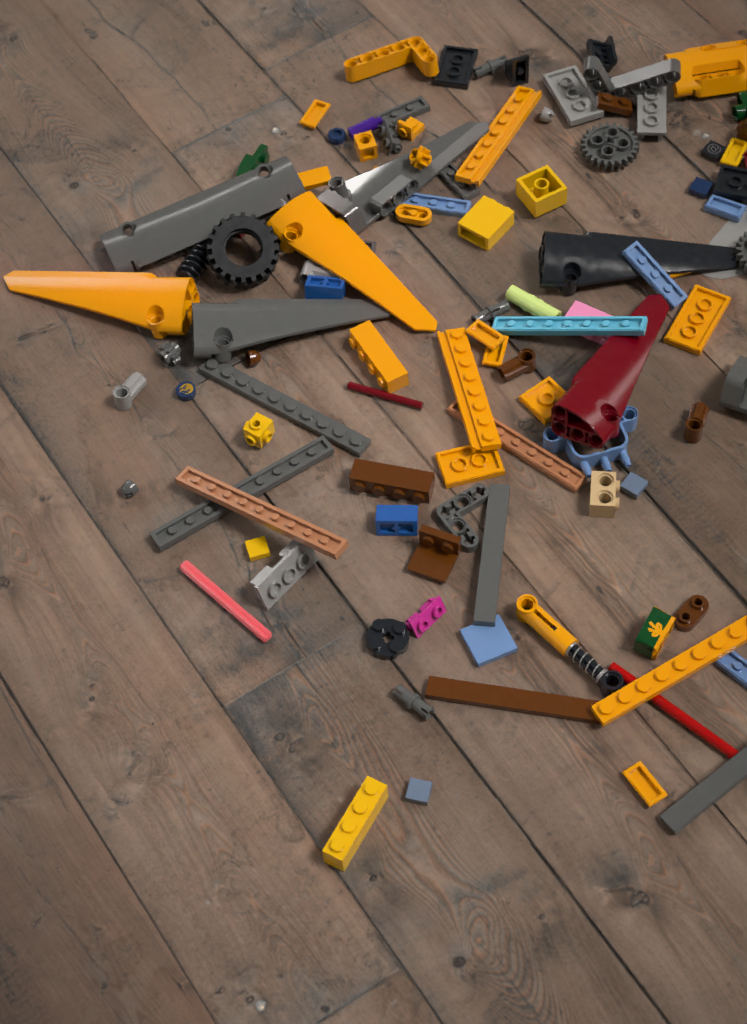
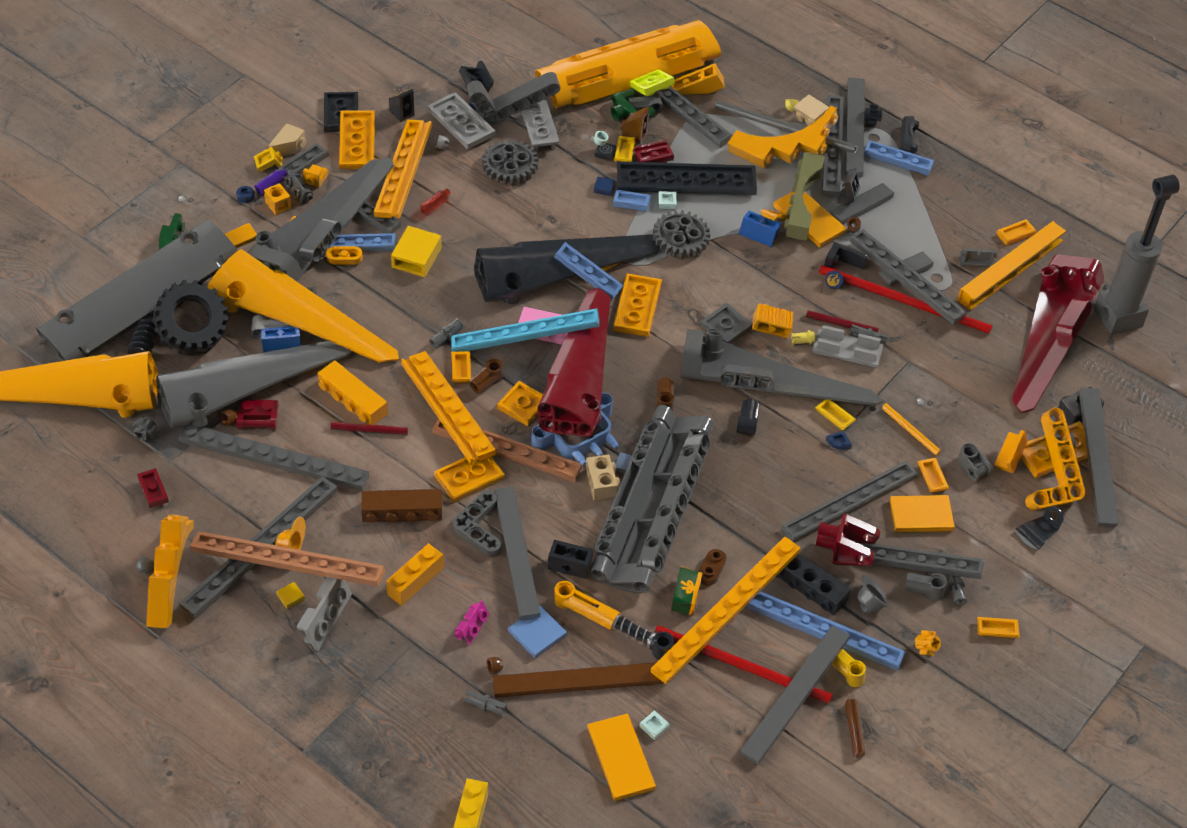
camera: 25 degrees left, 5 degrees down
(126, 392) = (114, 472): light grey piece -> none
(145, 490) = (167, 559): none -> light orange arch
(160, 413) = (152, 488): none -> dark red plate
(186, 391) = (171, 461): dark blue tile -> none
(226, 601) = (274, 651): coral axle -> none
(258, 430) = (258, 484): yellow brick -> none
(275, 491) = (292, 537): none -> light orange piece
(281, 355) = (257, 414): none -> dark red plate
(314, 114) = (216, 177): light orange tile -> none
(368, 104) = (267, 159): none -> yellow bracket
(382, 554) = (415, 574): none -> light orange brick
(387, 627) = (439, 641): black plate -> none
(392, 56) = (277, 110): light orange beam -> none
(392, 89) = (289, 140): none -> tan slope
(396, 520) = (415, 538): blue hinge -> none
(418, 791) = (515, 783): sand blue tile -> none
(420, 157) = (336, 200): light orange gear -> none
(433, 665) = (493, 665): none -> reddish brown hinge
(435, 554) = (464, 563): reddish brown bracket -> none
(462, 97) = (356, 139): none -> light orange tile
(485, 334) = (448, 353): light orange tile -> none
(490, 66) = (377, 104): dark grey pin -> none
(510, 179) = (434, 201): none -> clear red cylinder
(530, 303) = (481, 317): yellowish green axle -> none
(534, 791) = (621, 757): none -> light orange tile
(541, 191) = (460, 213): yellow brick -> none
(543, 573) = (570, 559): none -> black brick
(578, 766) = (654, 725): none -> light aqua tile
(614, 104) = (502, 122): reddish brown plate -> none
(645, 784) = (718, 726): light orange tile -> none
(647, 529) = (651, 500): none -> dark grey panel
(711, 132) = (603, 135): none -> light aqua hinge

